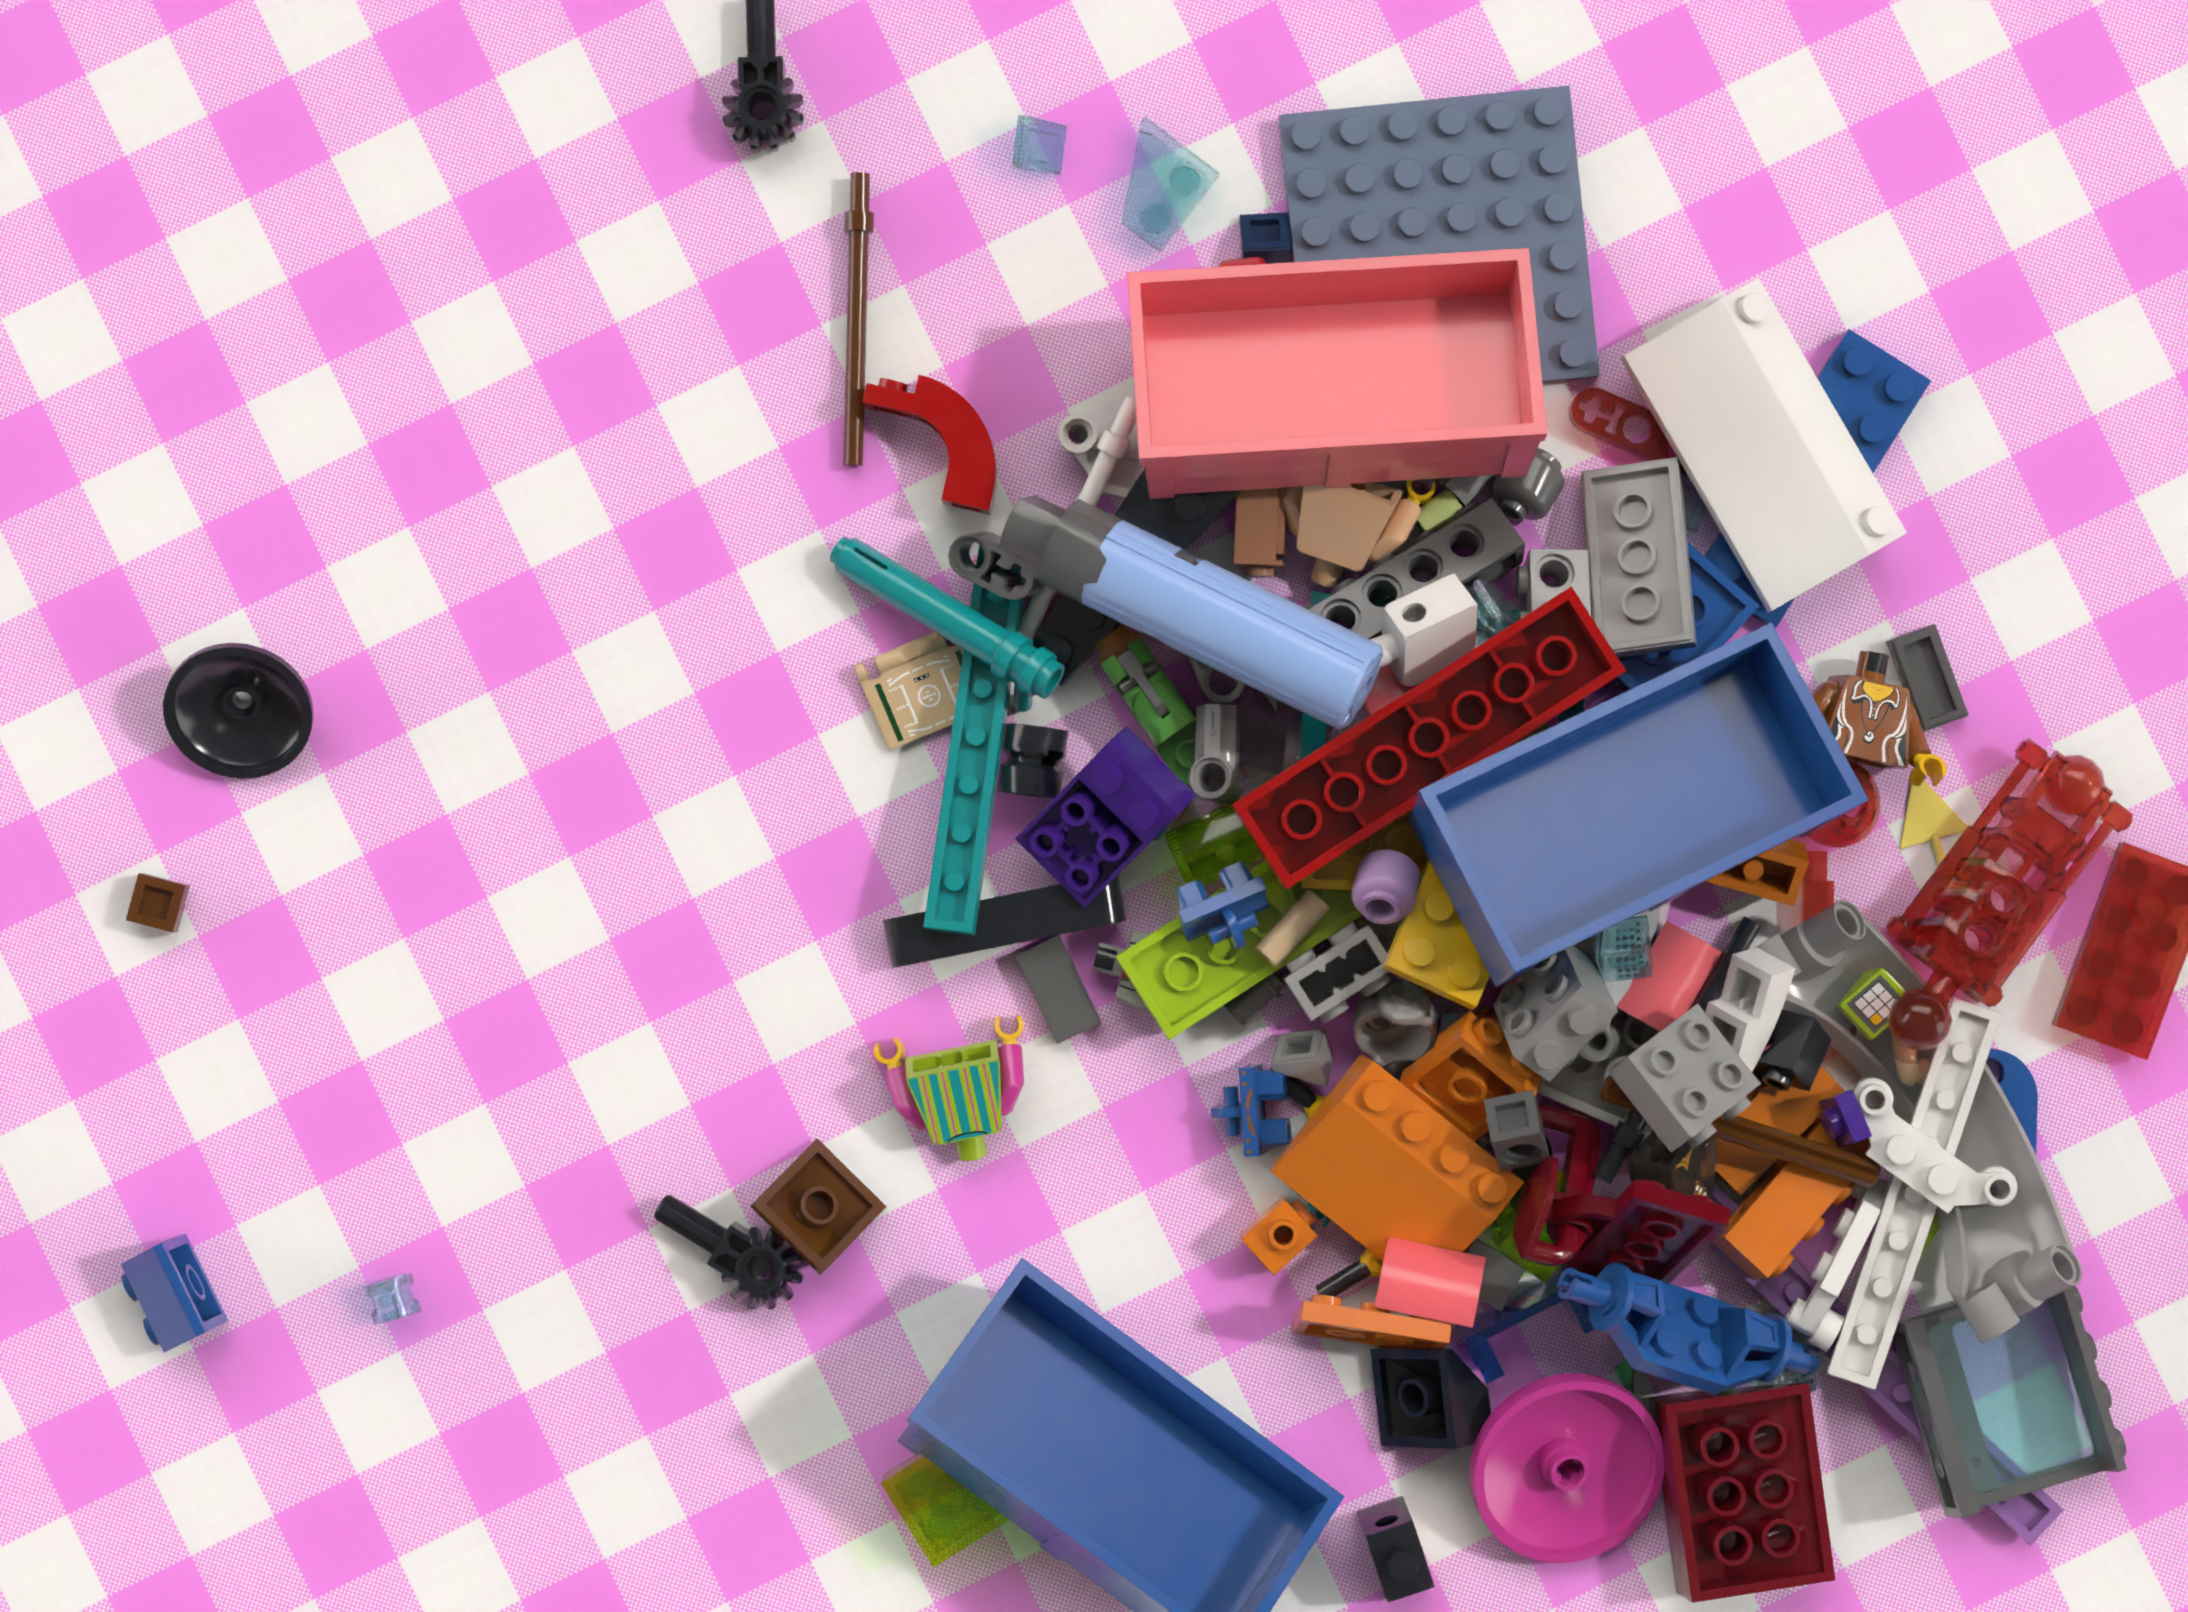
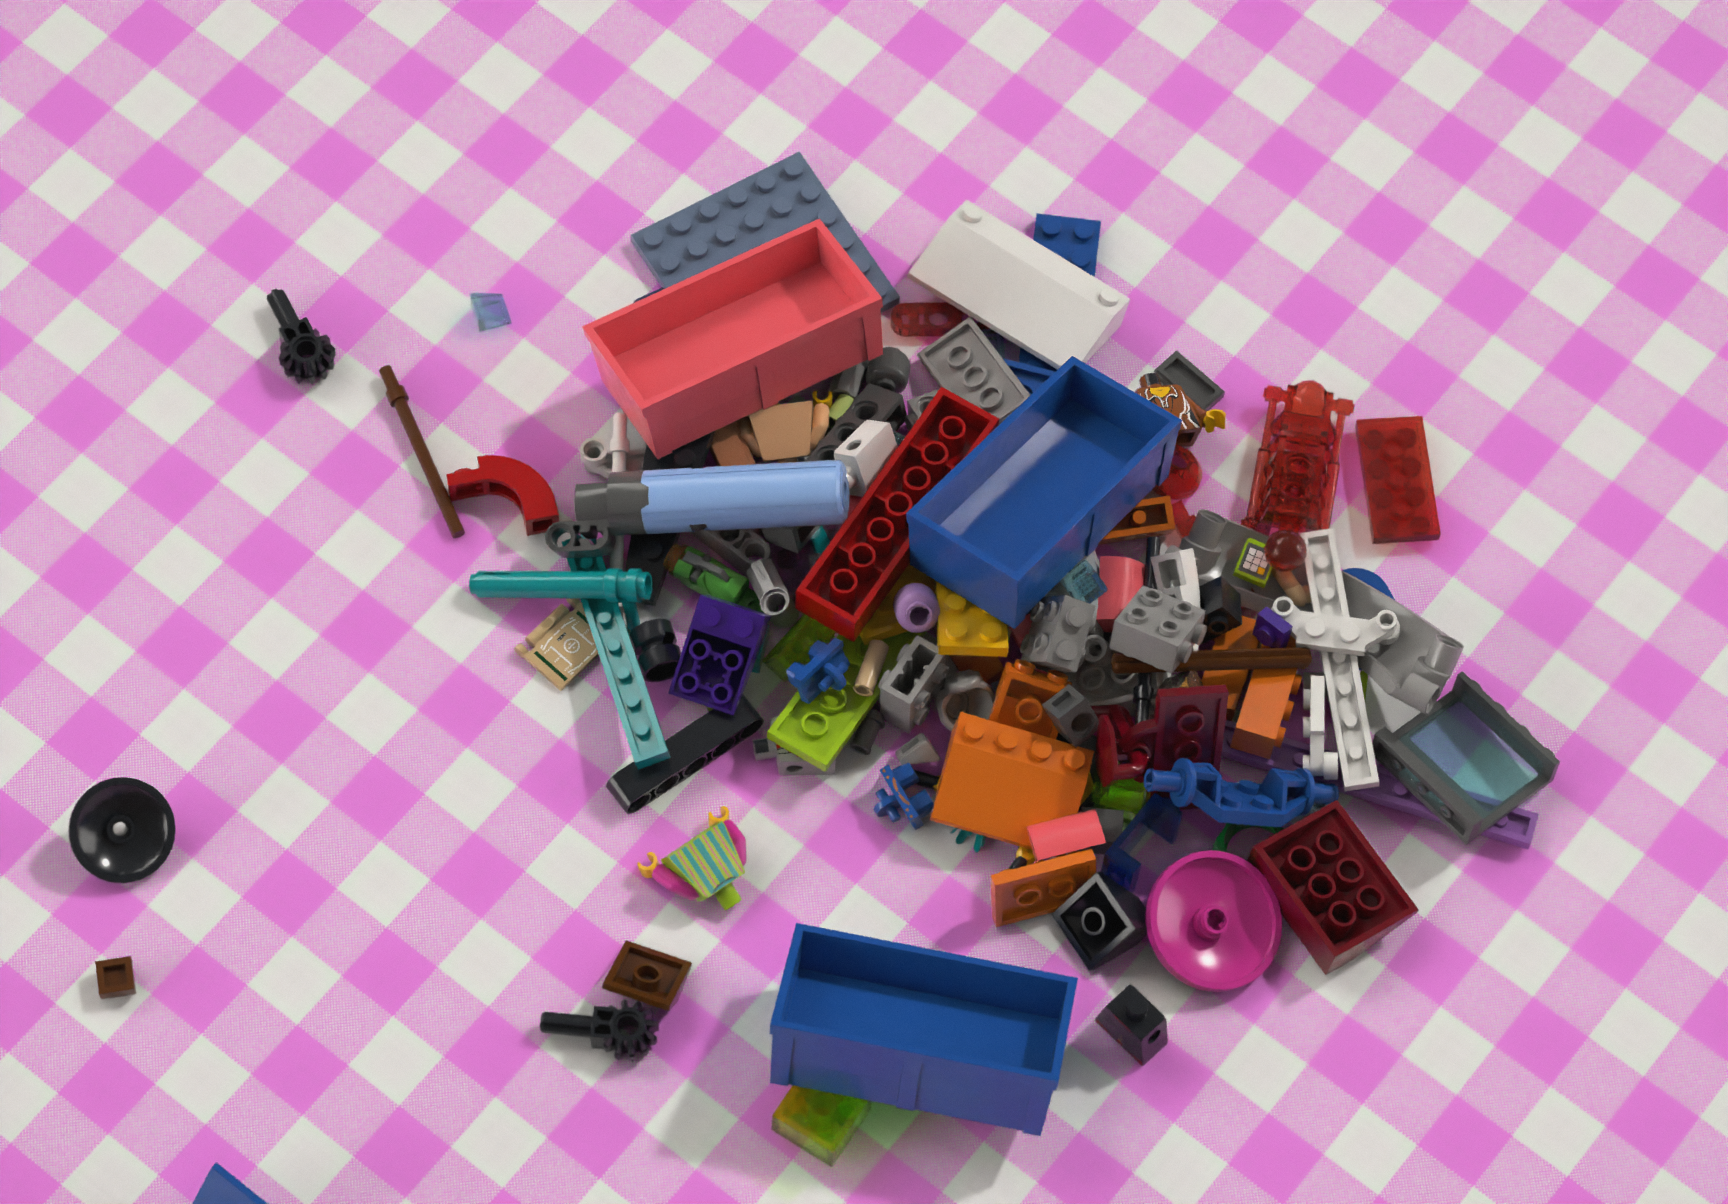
camera: 30 degrees left, 25 degrees down
(392, 1298) = (386, 1157): clear light blue wheel -> none
(1058, 989) = (739, 783): dark grey tile -> none
(1163, 185) = (577, 298): clear light blue wing -> none
(1280, 1233) = (956, 864): orange brick -> none
(1929, 820) = (1232, 461): light yellow piece -> none

